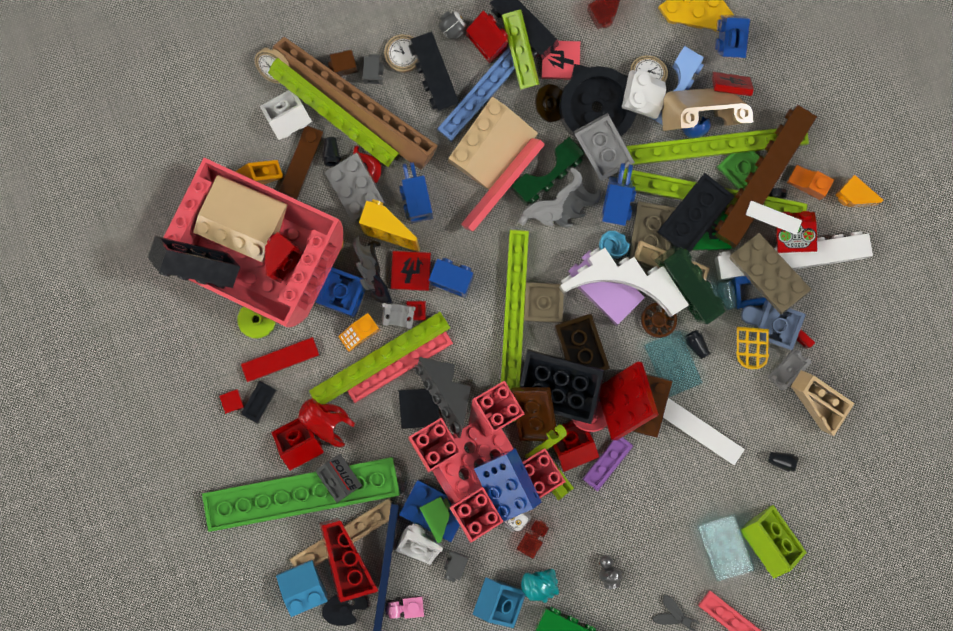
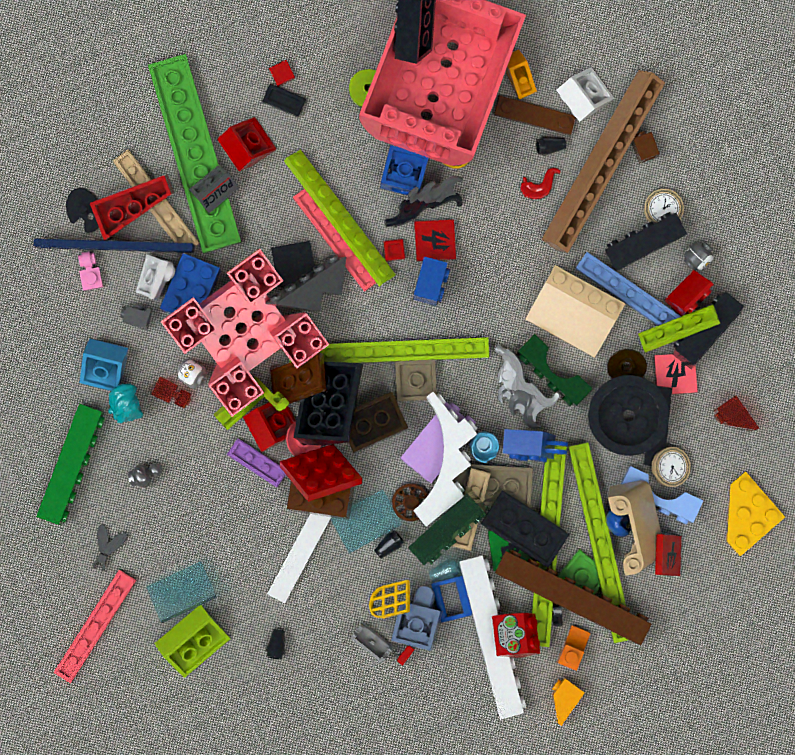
camera: 80 degrees right, 0 degrees up
(239, 218) = (466, 59): tan slope -> none
(264, 60) = (633, 74): tile -> none
(280, 256) = (431, 103): red slope -> none
(280, 359) = (329, 117): red tile -> none
(302, 588) = (100, 164): dark azure slope -> none
(320, 421) = (270, 162): red hair -> none
(332, 112) = (590, 141): lime plate -> none
(353, 185) = (516, 173): light grey plate -> none
(359, 332) = (366, 194): light orange slope -> none
(373, 69) = (642, 178): dark grey brick -> none
(383, 225) = (479, 200): yellow slope -> none
(397, 314) = (387, 230): light grey piece -> none
(416, 196) = (512, 236): blue brick -> none
(437, 516) = (183, 289): bright green slope -> none
(502, 184) = (535, 325): coral tile -> none
(508, 484) = (222, 356): blue piece -> none
(603, 146) = (584, 424): light grey plate -> none
(644, 94) = (644, 461): white slope -> none
(732, 36) = (718, 550): blue brick -> none
(770, 273) = (468, 610): dark tan plate -> none
(773, 217) = (528, 608): white sticker -> none
(822, 402) = (340, 679): tan wedge -> none

